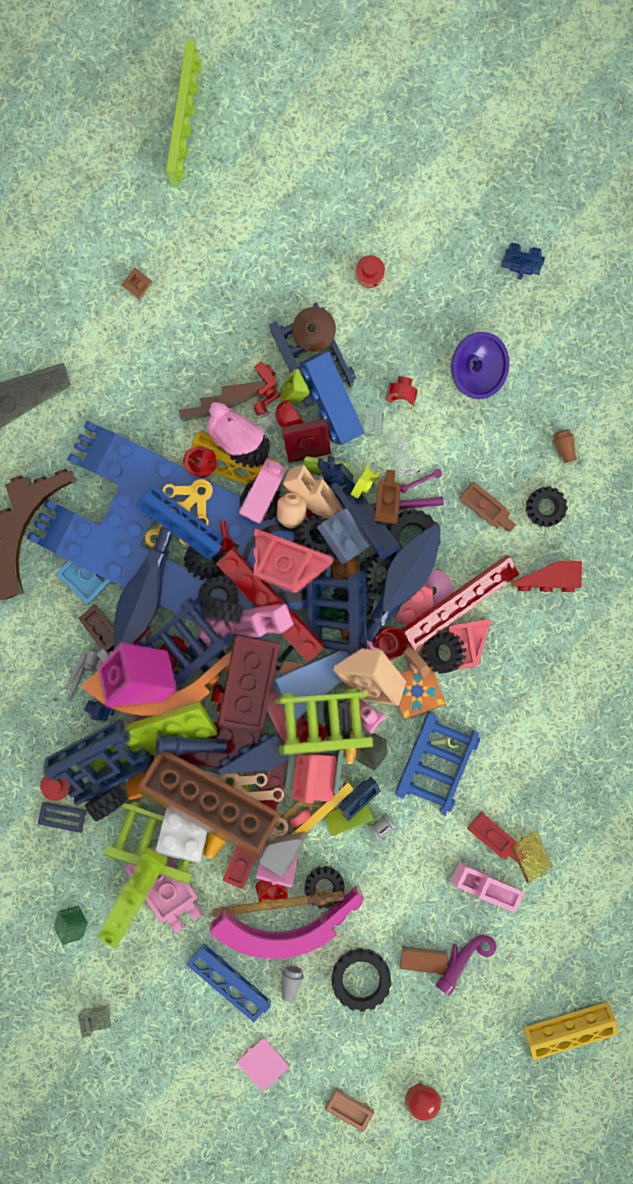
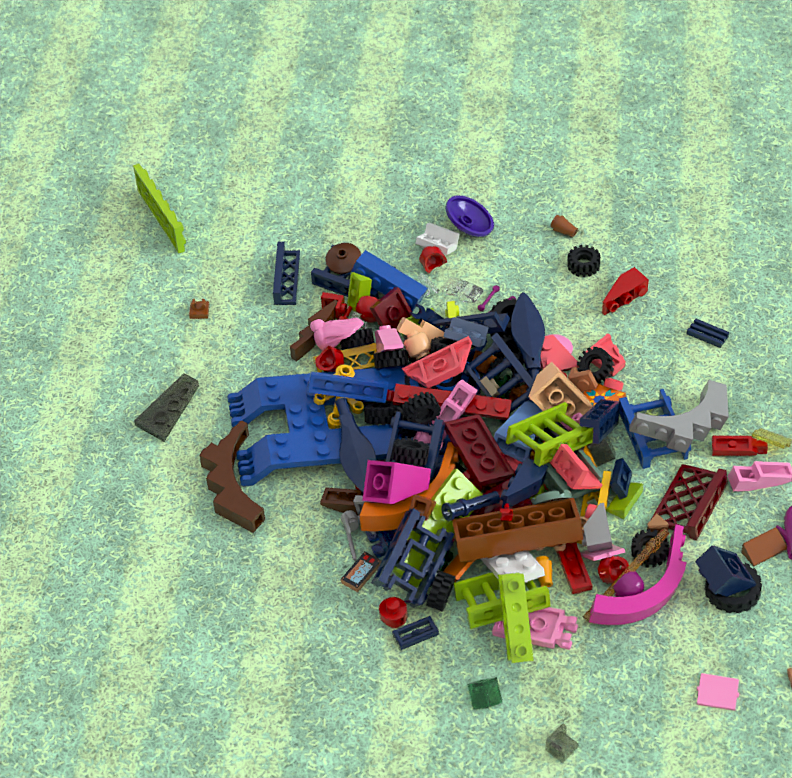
camera: 30 degrees left, 40 degrees down
(63, 717) = (361, 571): none -> tile
(82, 581) = (304, 477): dark azure plate -> none
(140, 722) = (423, 505): none -> dark orange slope
(180, 647) = (410, 452): none -> black tyre
(202, 791) = (507, 514): none -> red hand
(233, 979) = (644, 644): blue fence -> none
(242, 297) = (279, 279): none -> dark blue fence
(265, 794) = (551, 496): none -> sand green tile
(268, 922) = (629, 585): none -> magenta hair
(291, 981) = (684, 620): light grey cone -> none
(314, 620) = (491, 386): none -> dark tan plate
(347, 872) = (657, 523): none -> medium nougat slope
(357, 975) = (724, 571): none -> dark blue slope
(370, 271) = (353, 217): red piece -> none
(382, 827) = (652, 487): light grey bush -> none
(386, 731) = (602, 418): none -> dark blue fence
(387, 499) = (476, 307): dark orange hinge -> none
(412, 879) = (707, 502): none -> dark red fence
(427, 370) = (439, 237): none -> white bracket
(445, 683) = (613, 383): none -> coral tile
(460, 602) = (578, 333): plate -> none
(471, 799) = (683, 428): none -> light grey arch
(487, 507) = (547, 283): dark orange hinge -> none
(523, 262) = (446, 160): clear blue hips -> none
(579, 668) = (709, 332): none -> dark blue tile

